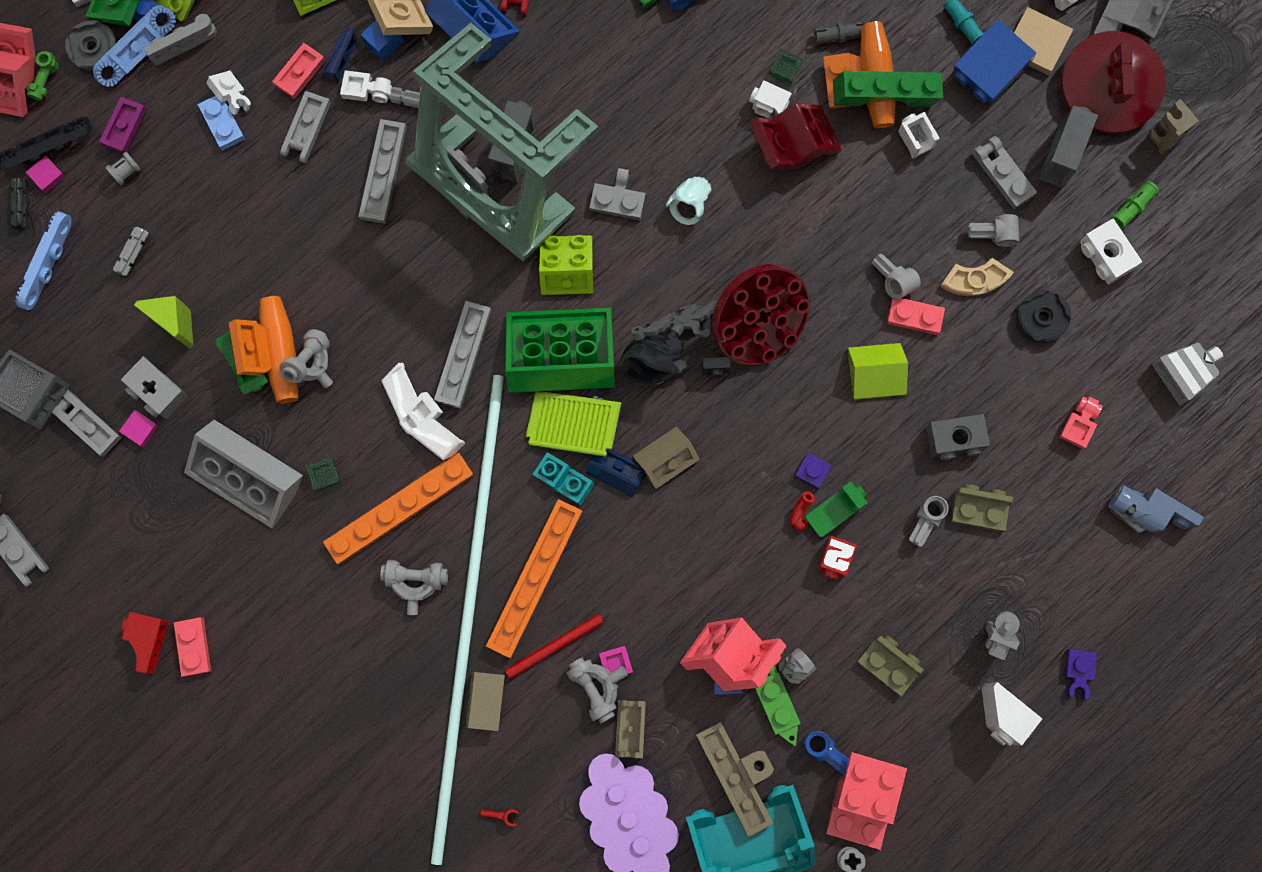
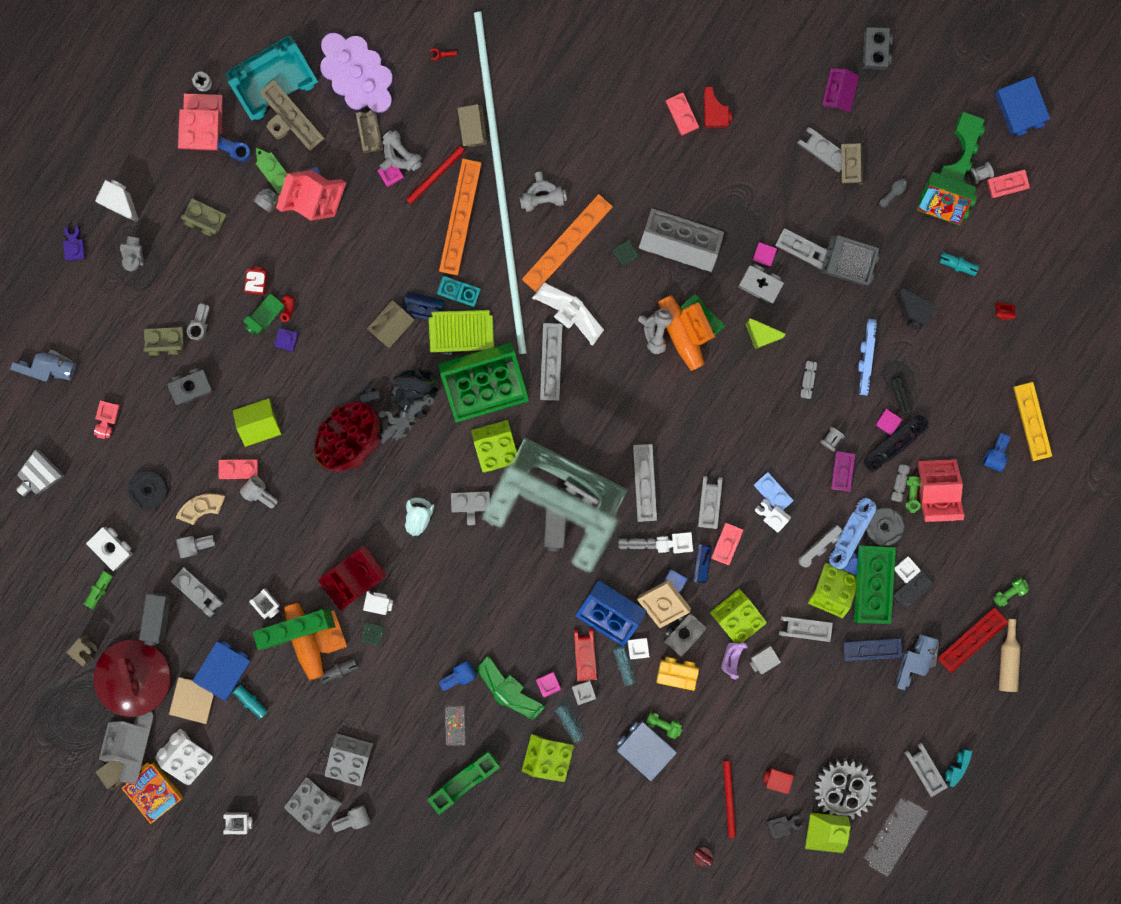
camera: 165 degrees right, 10 degrees up
(54, 95) = (900, 483): none -> light grey axle

